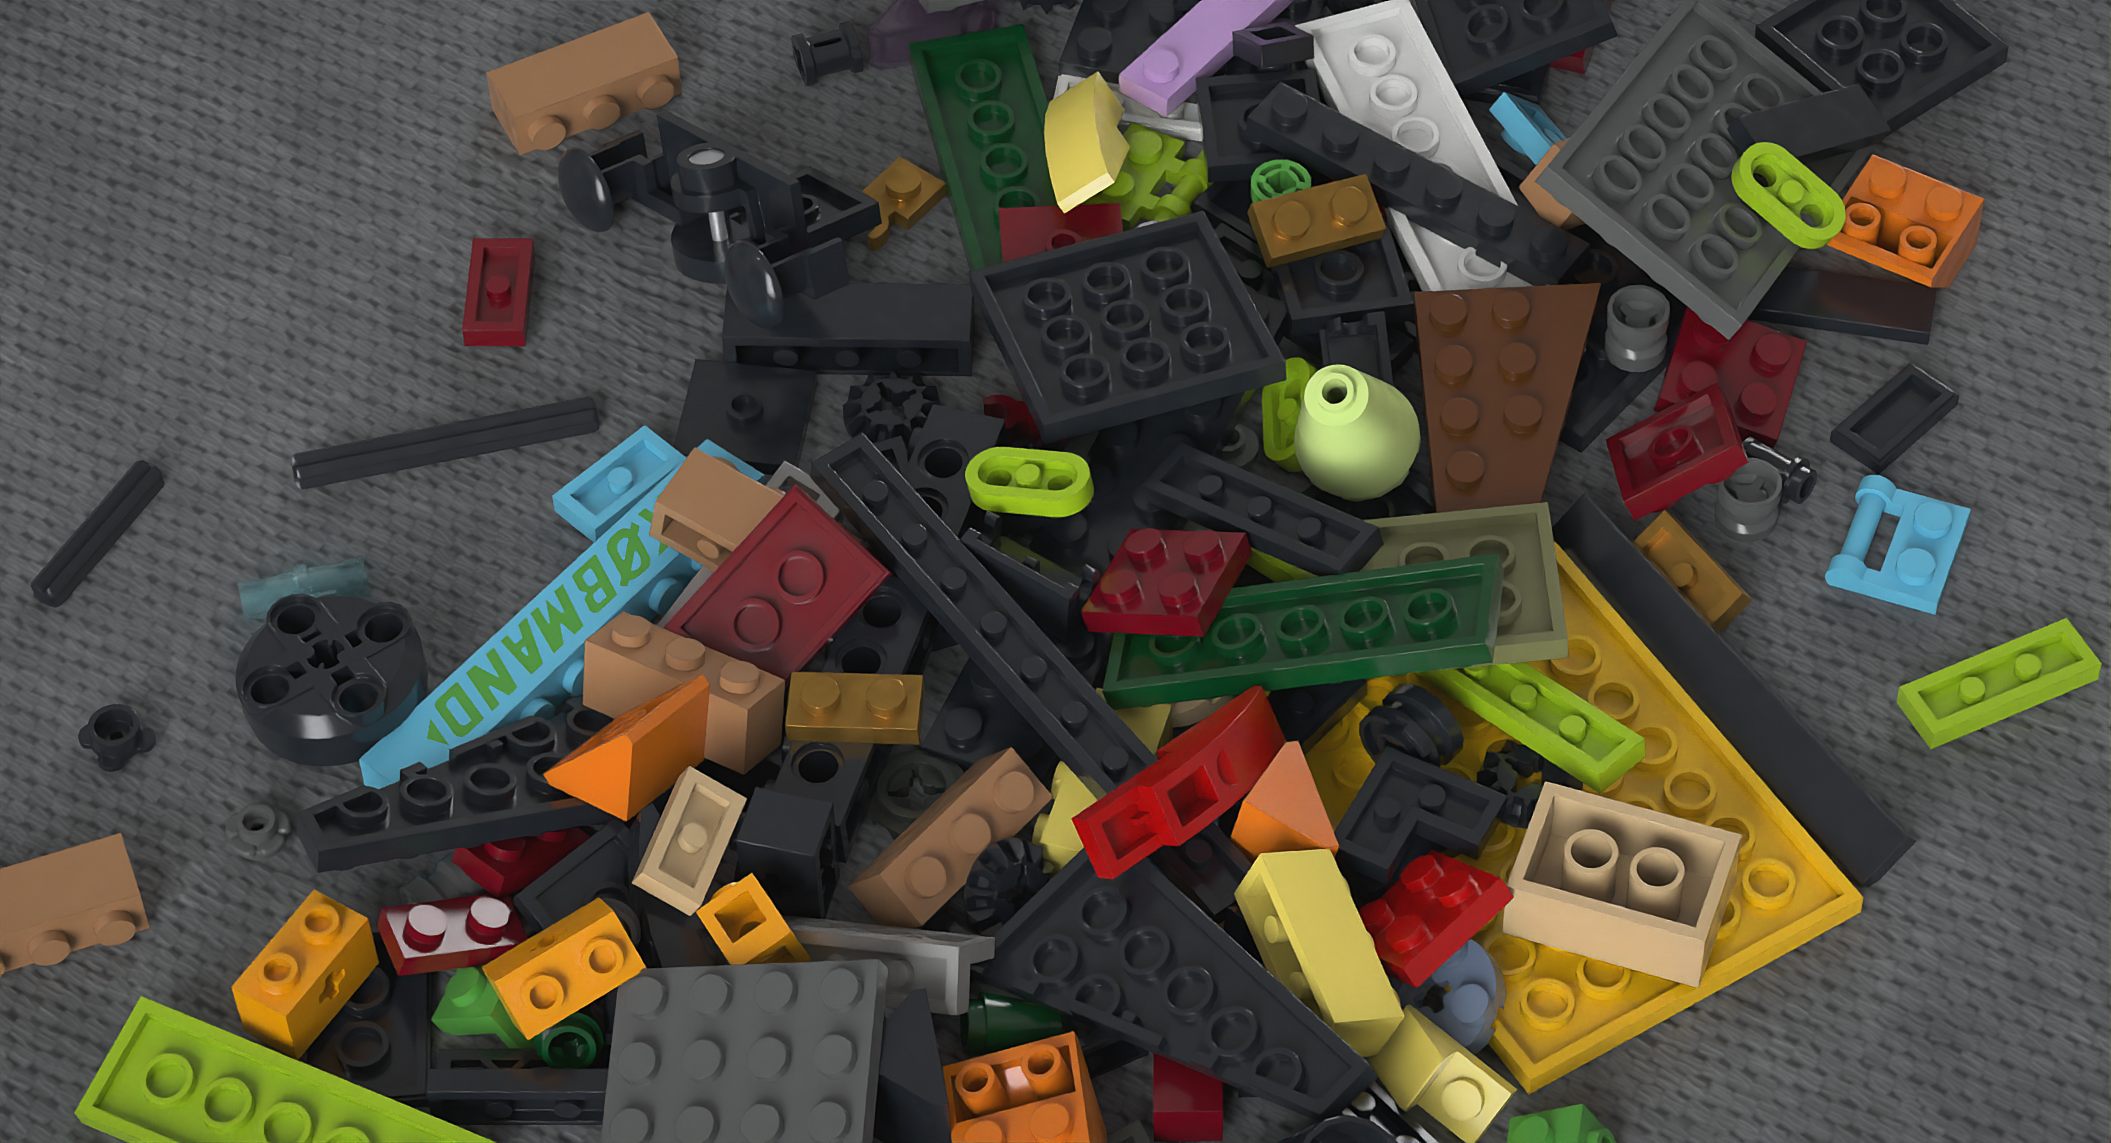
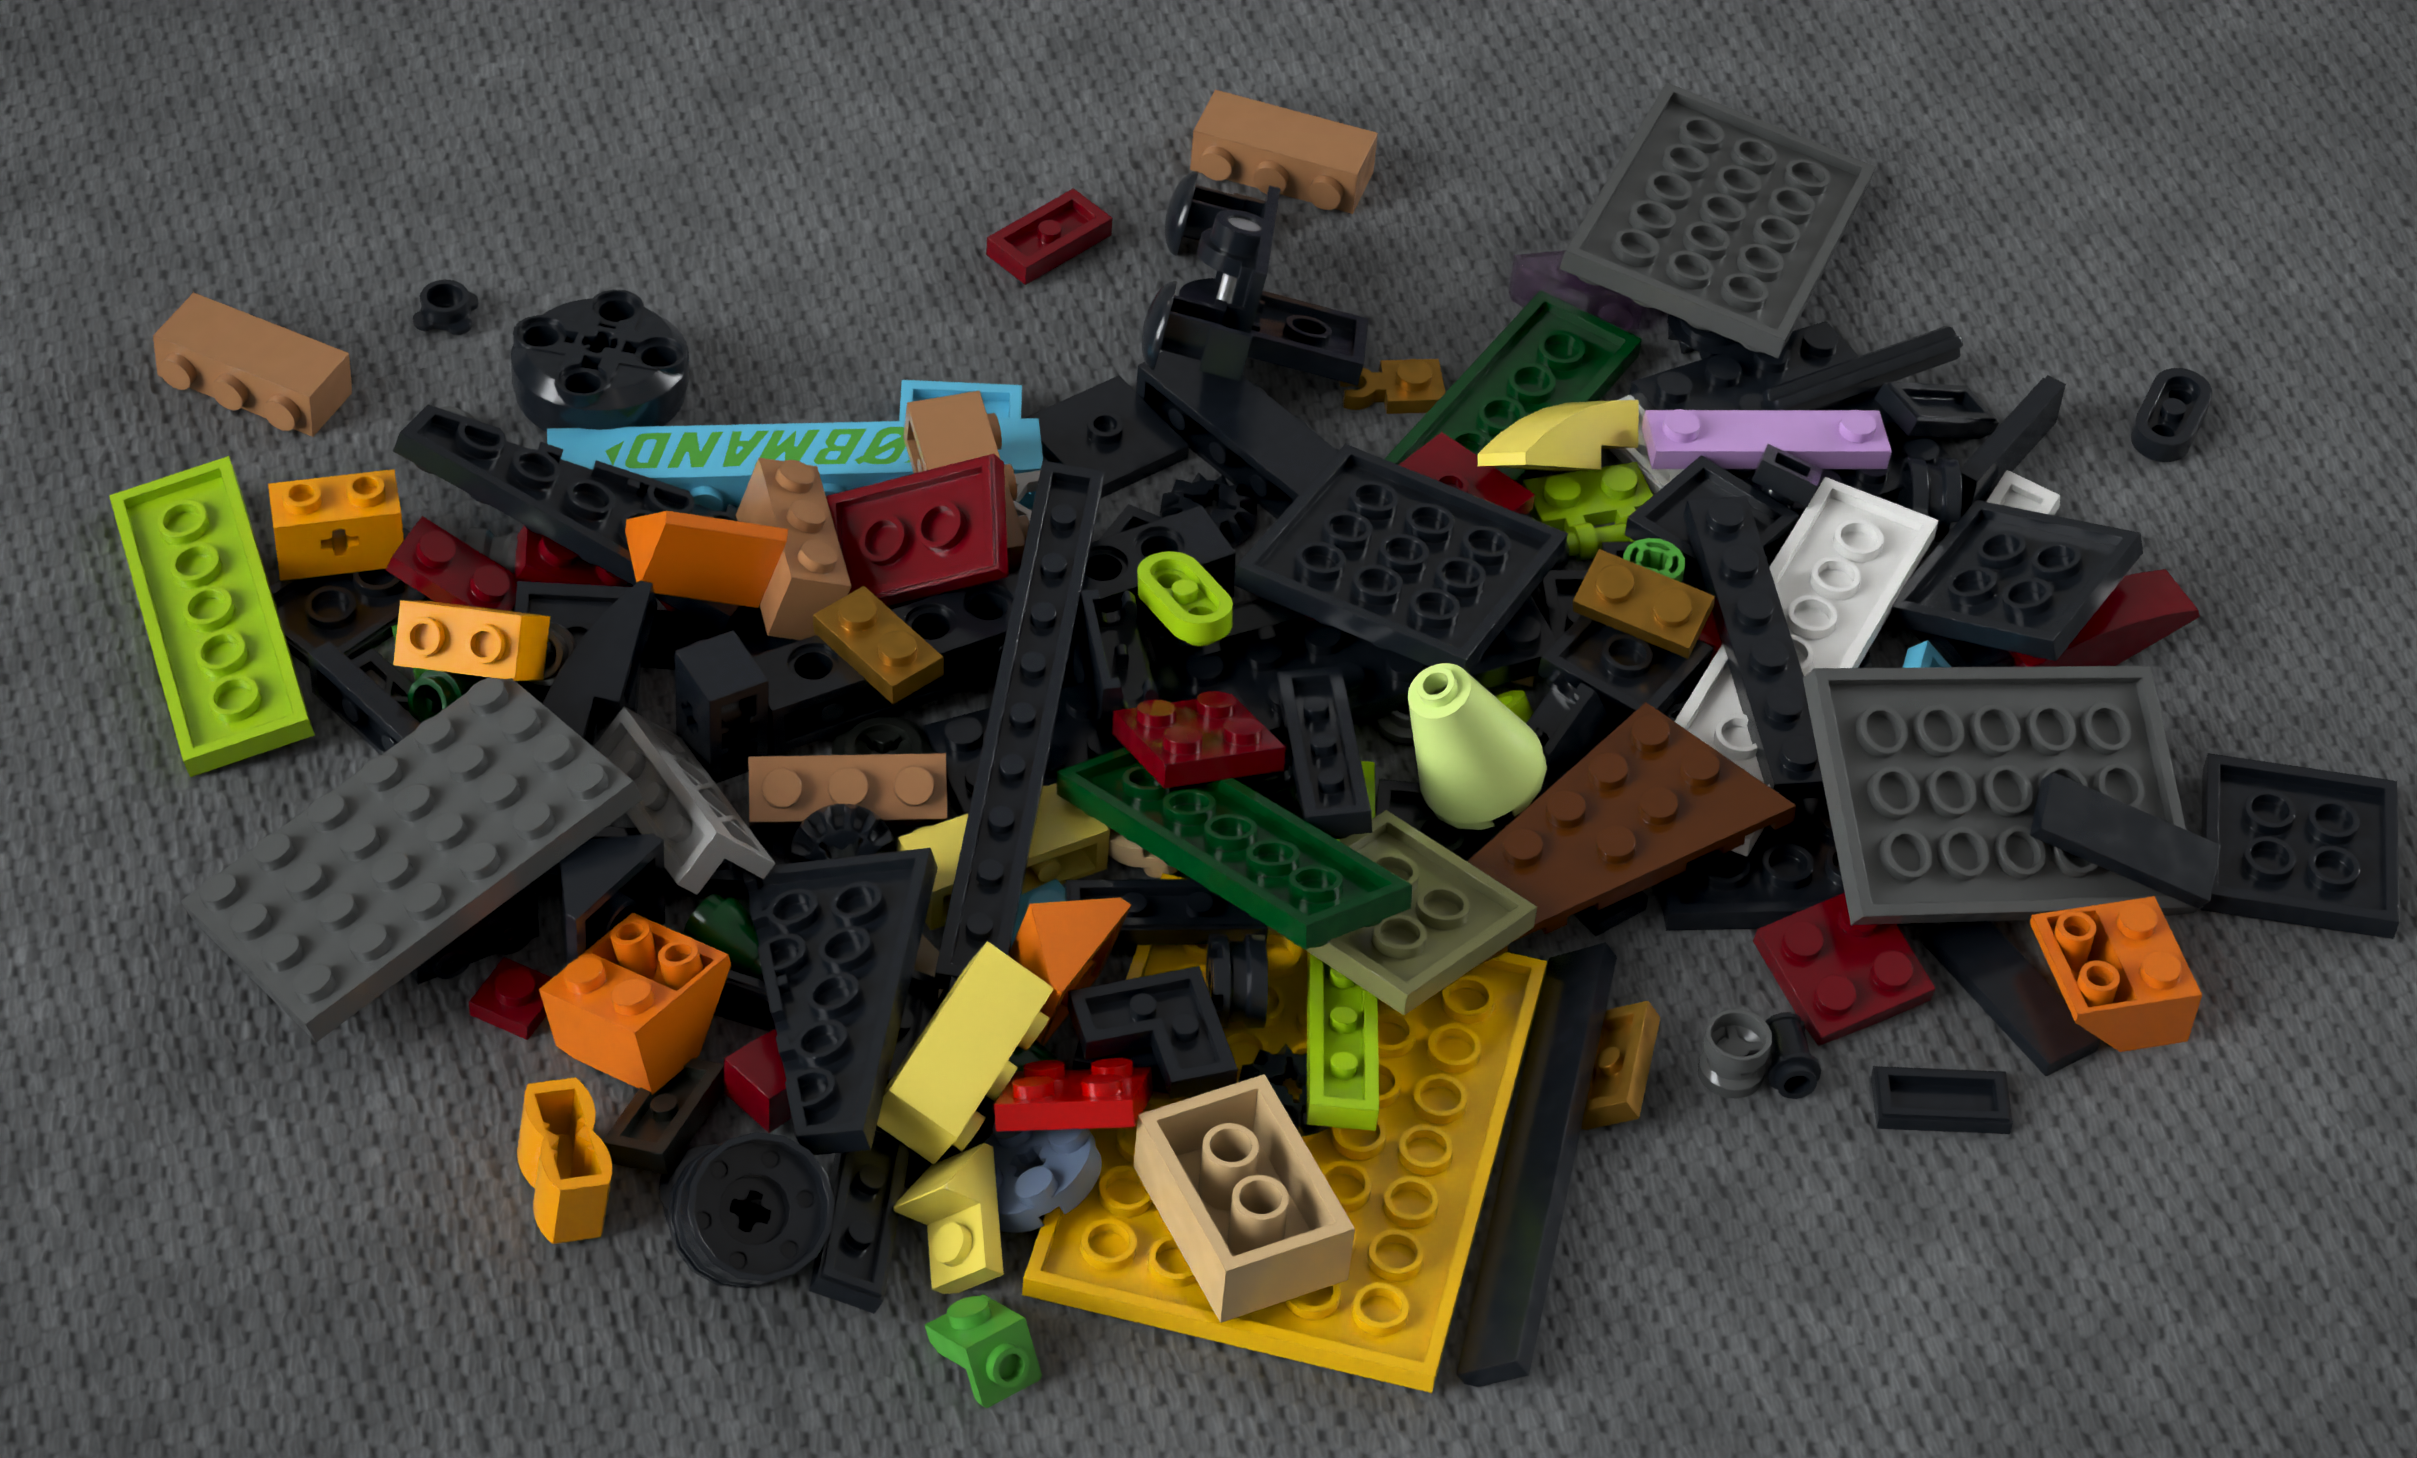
camera: 40 degrees right, 5 degrees down
(97, 534) = (602, 184): black axle -> none
(338, 578) = (689, 318): clear light blue pin -> none
(445, 442) = (890, 301): black axle -> none
(689, 841) = (641, 623): tan plate -> none
(750, 926) = (617, 716): light orange brick -> none
(827, 53) = (1479, 257): black bush -> none
(1186, 788) = (1006, 859): red slope -> none
(1637, 328) = (1798, 866): dark grey wheel -> none
(1676, 452) = (1713, 972): dark red plate -> none
(1789, 192) = (2025, 862): lime plate -> none
(1918, 554) = (1823, 1202): medium azure plate -> none
(1998, 683) = (1755, 1334): lime plate -> none

